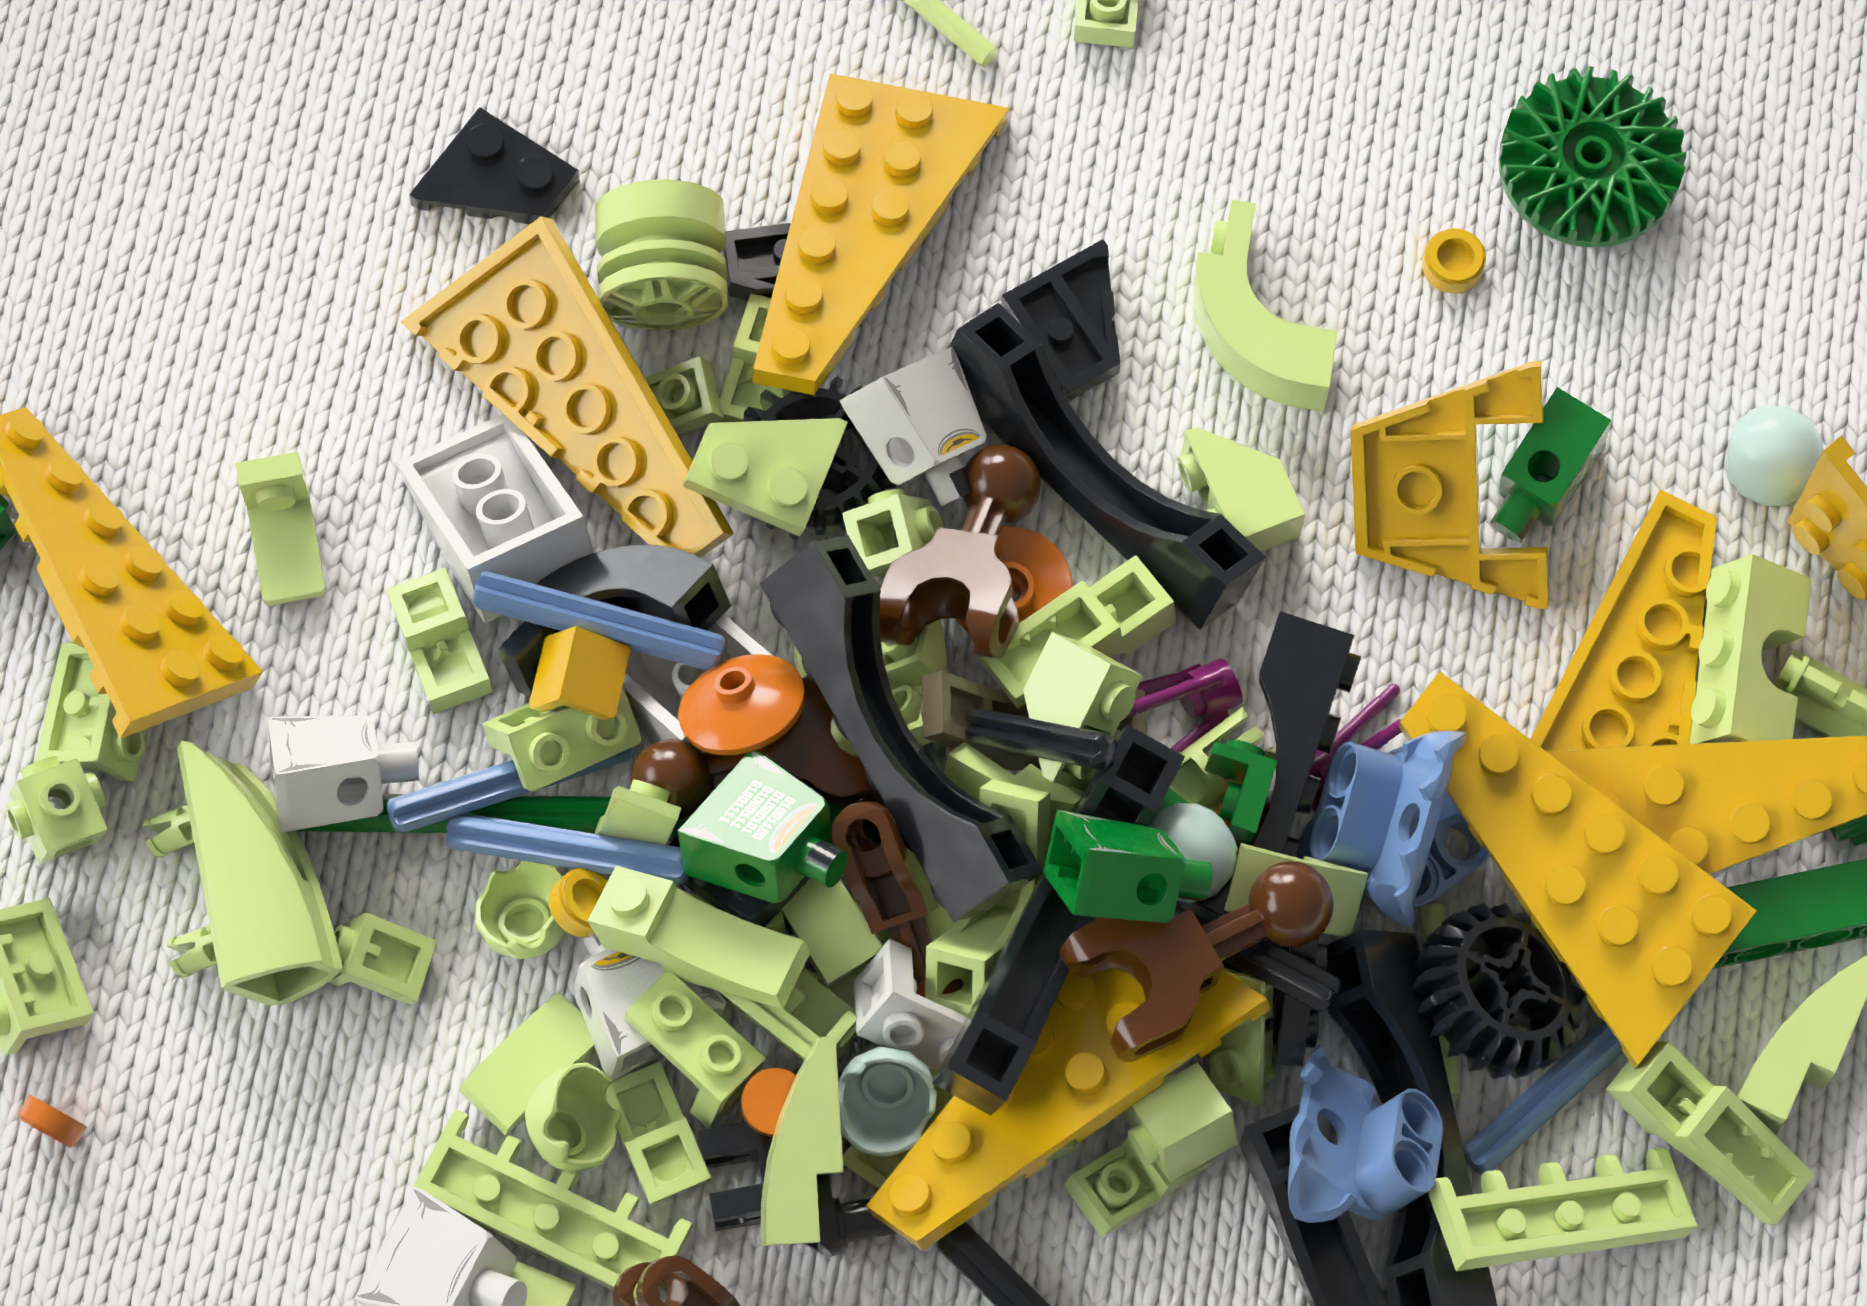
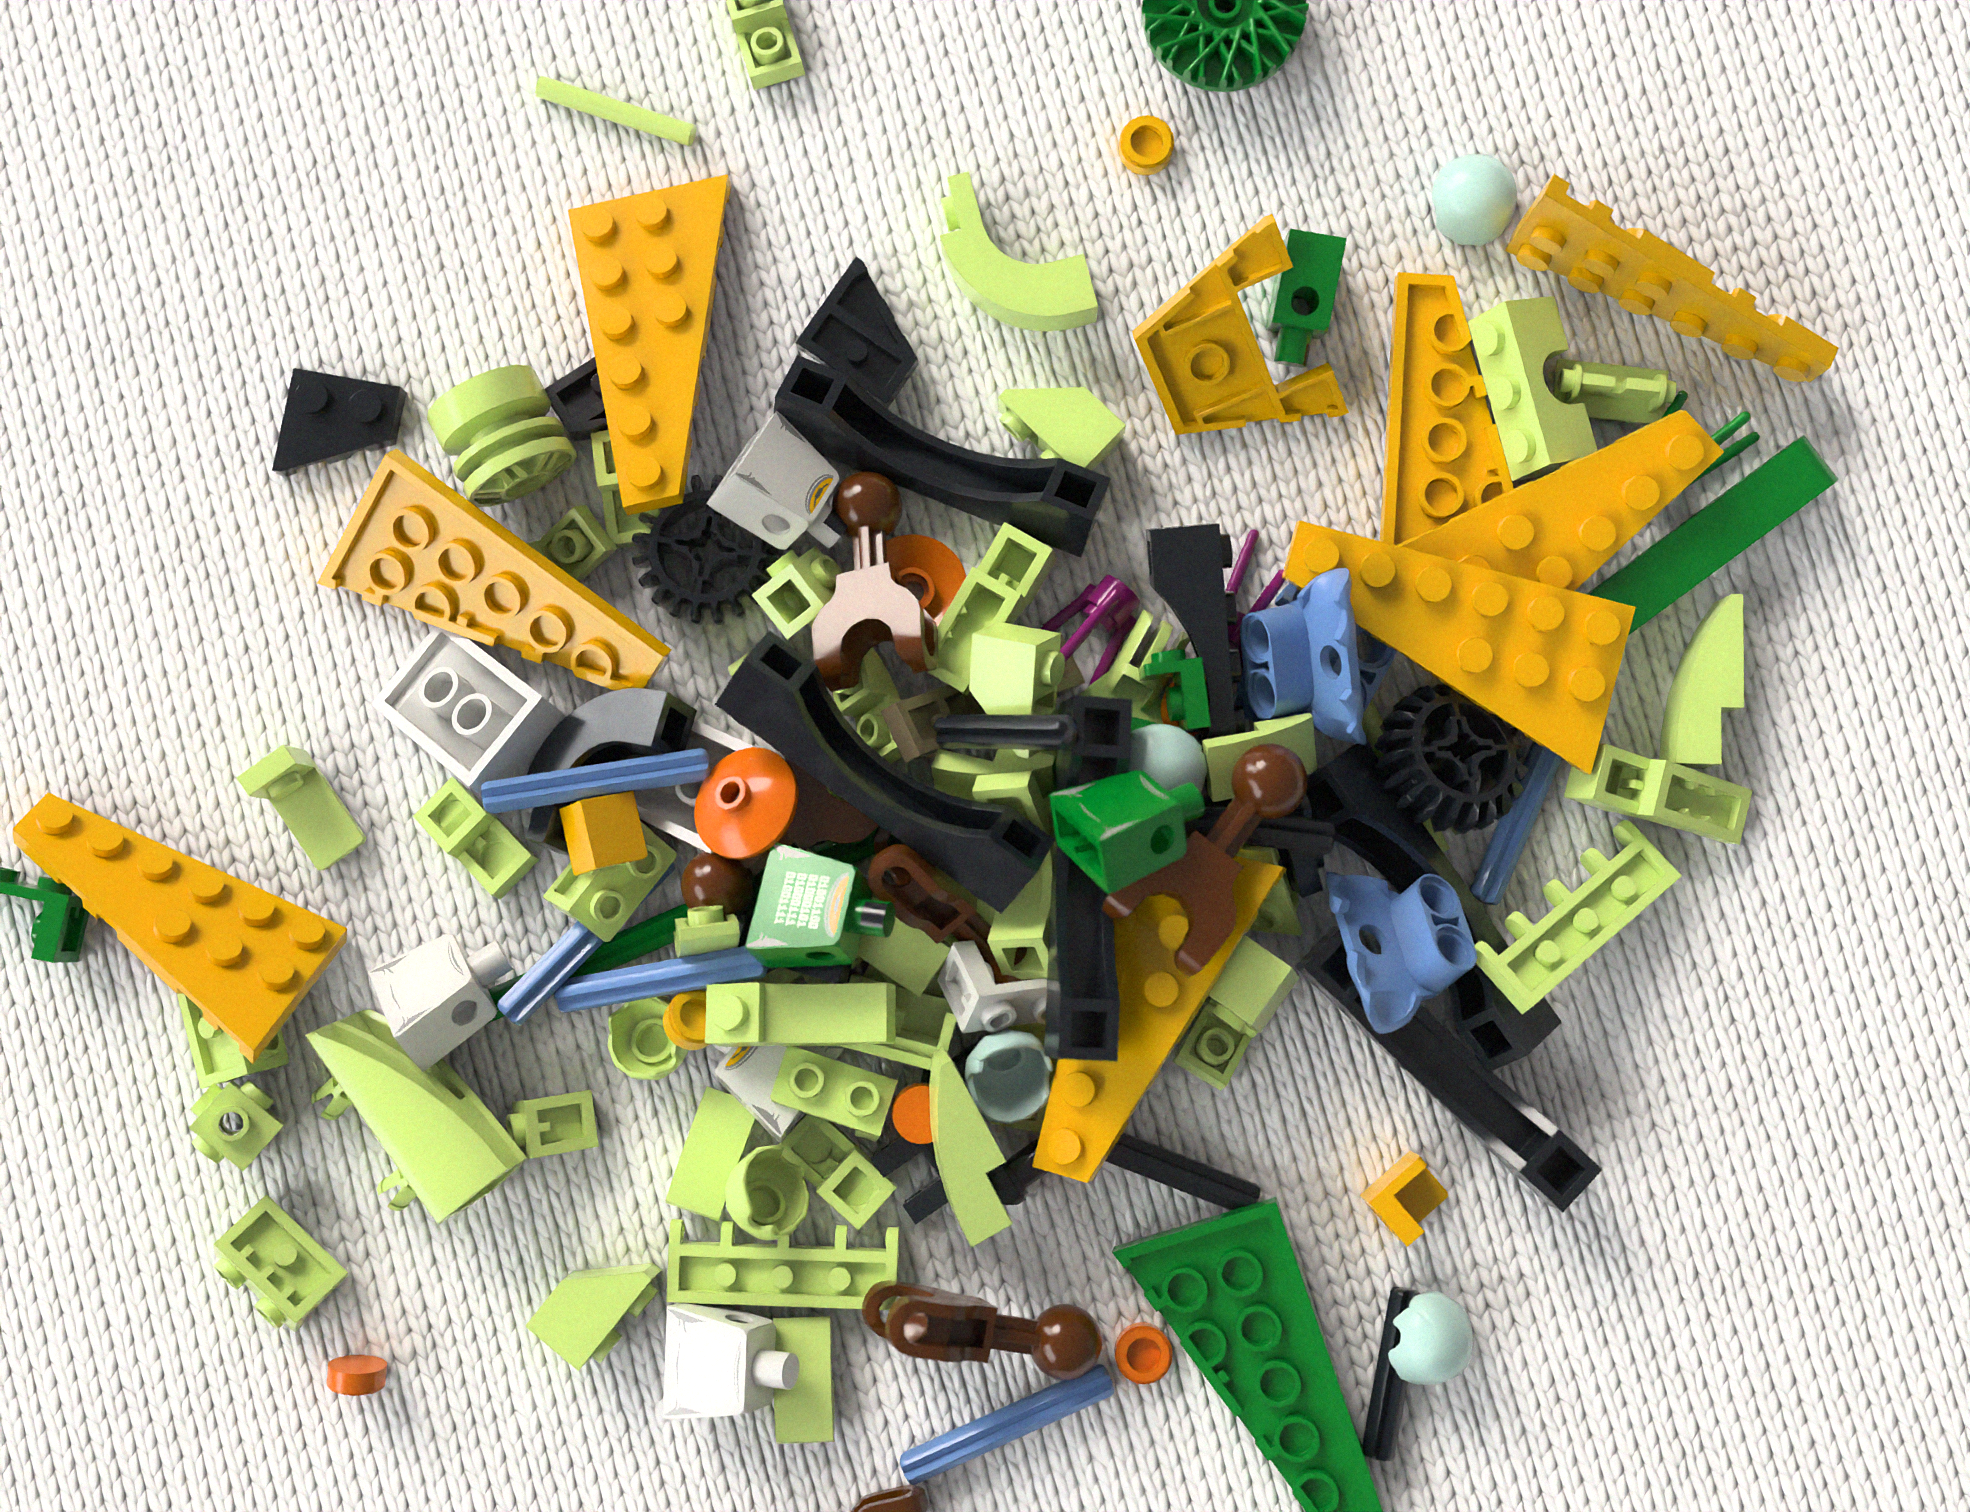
camera: 10 degrees left, 15 degrees up
(332, 1159) = (588, 1306): none -> yellowish green slope
(766, 467) = (673, 585): yellowish green wing -> none

